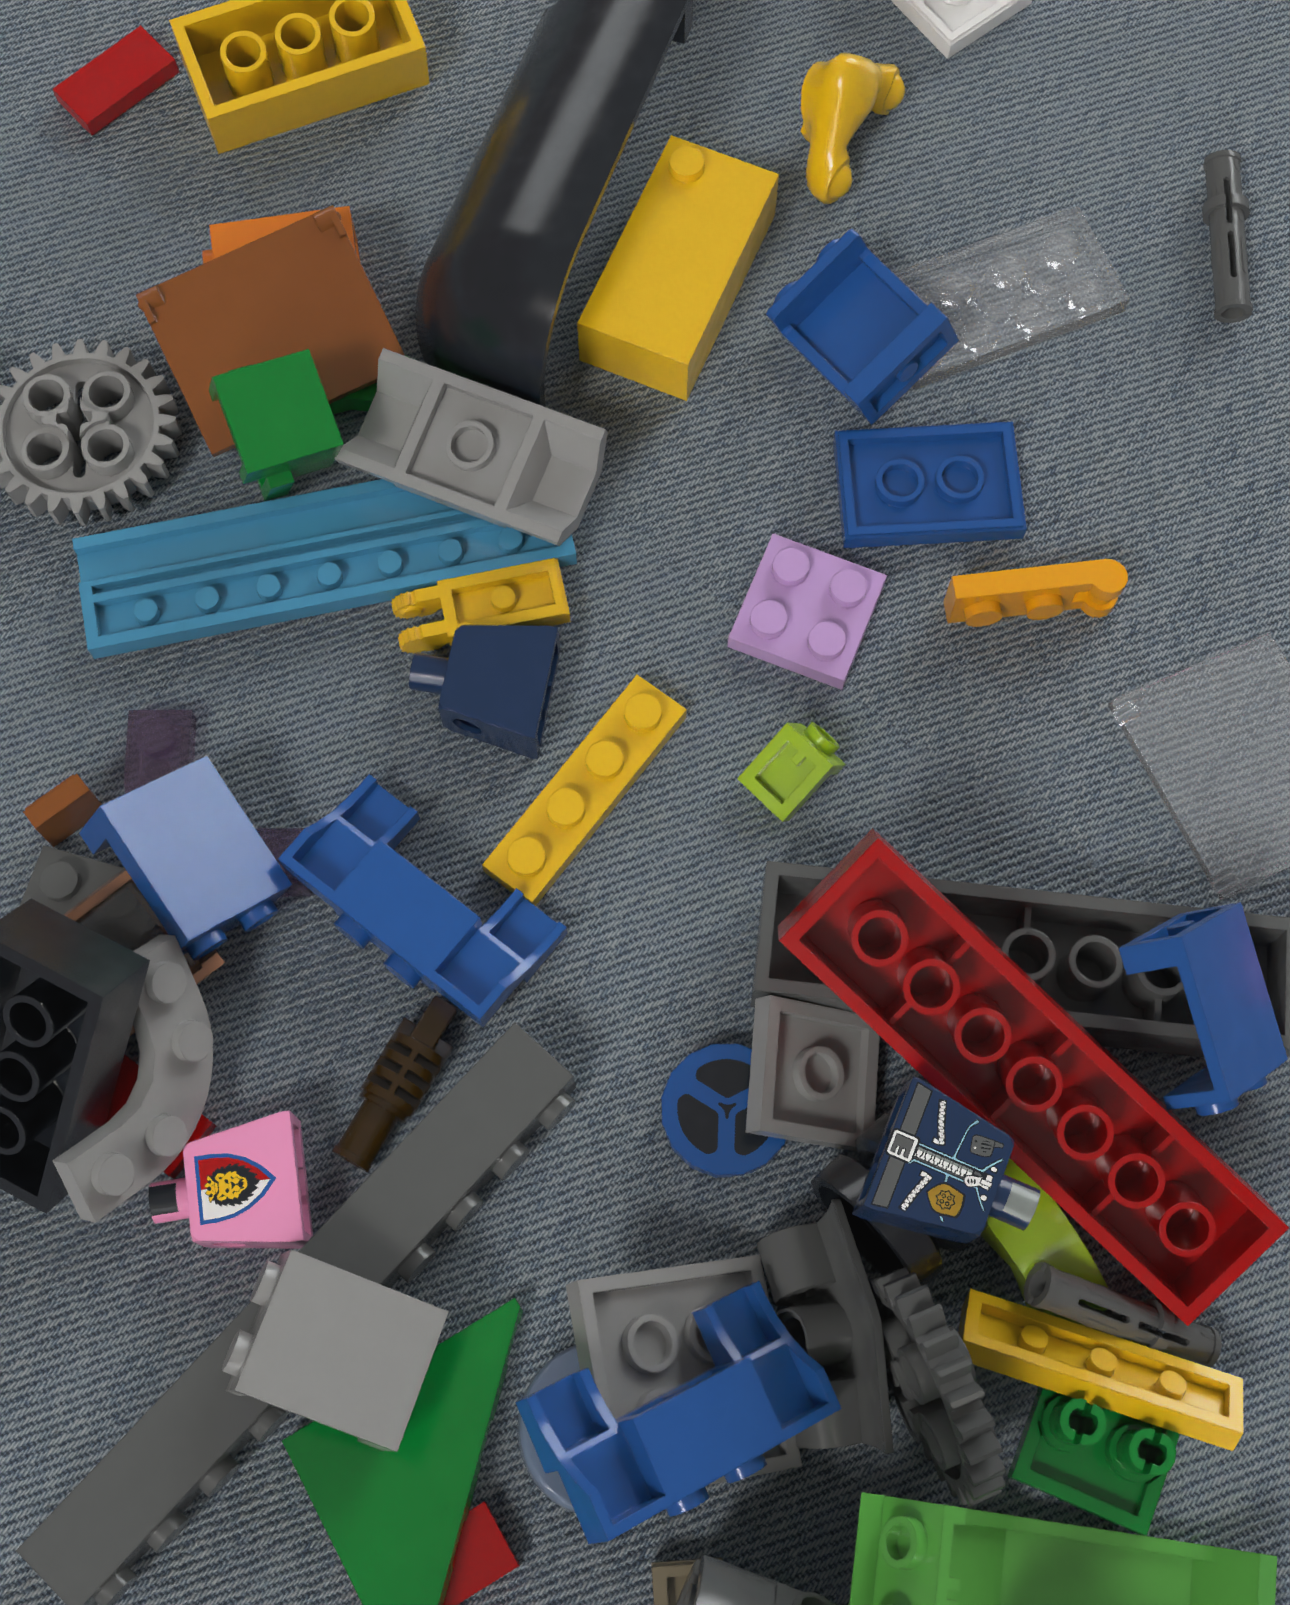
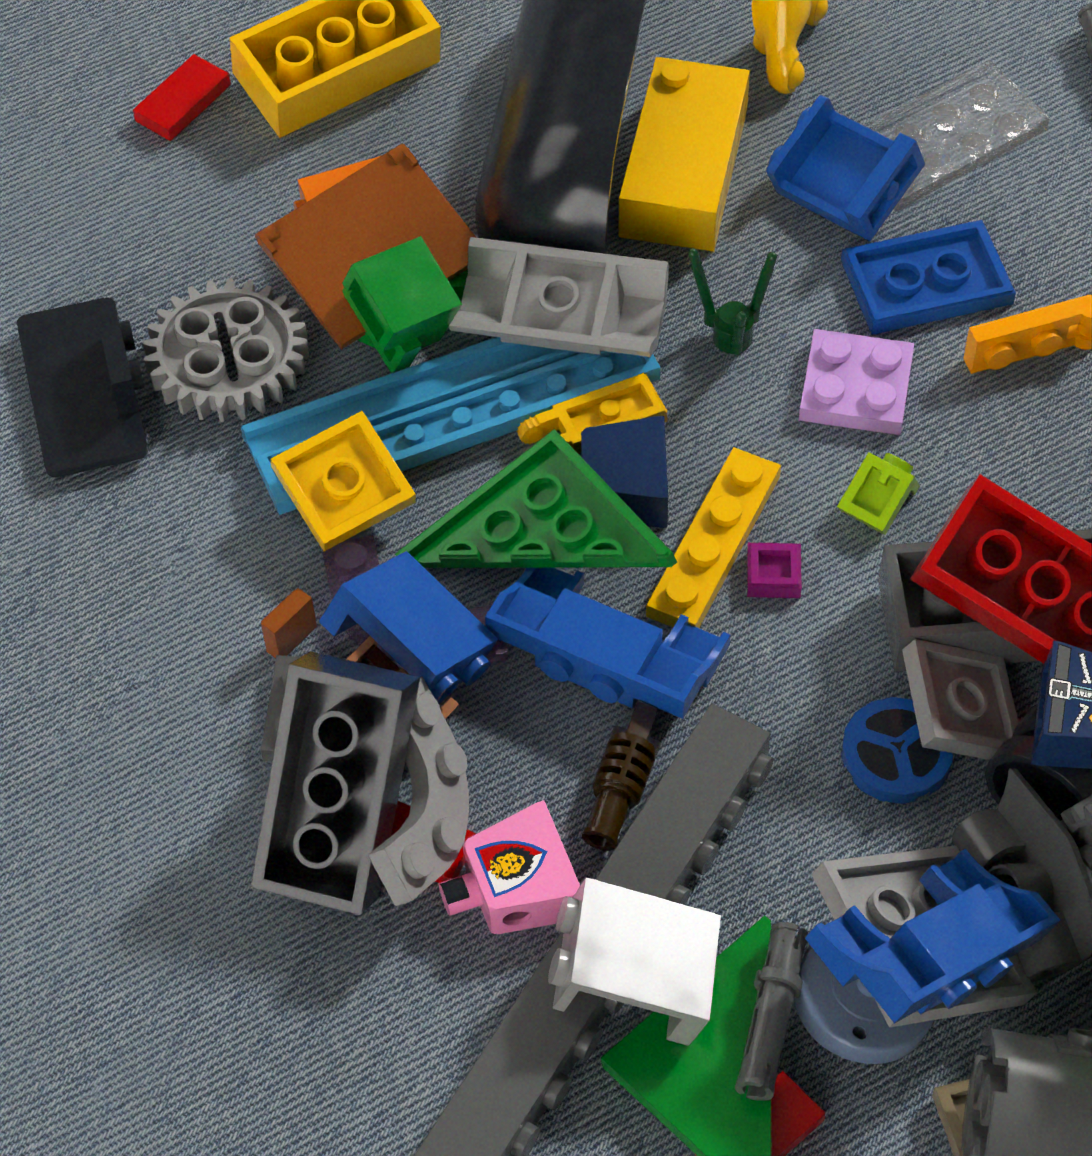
camera: 10 degrees left, 15 degrees down
(163, 640) = (343, 480): none -> yellow plate
(383, 732) = (541, 514): none -> green tile
(480, 1441) = (776, 989): none -> dark grey pin
(644, 843) = (774, 570): none -> magenta tile
(678, 505) = (733, 320): none -> dark green plant

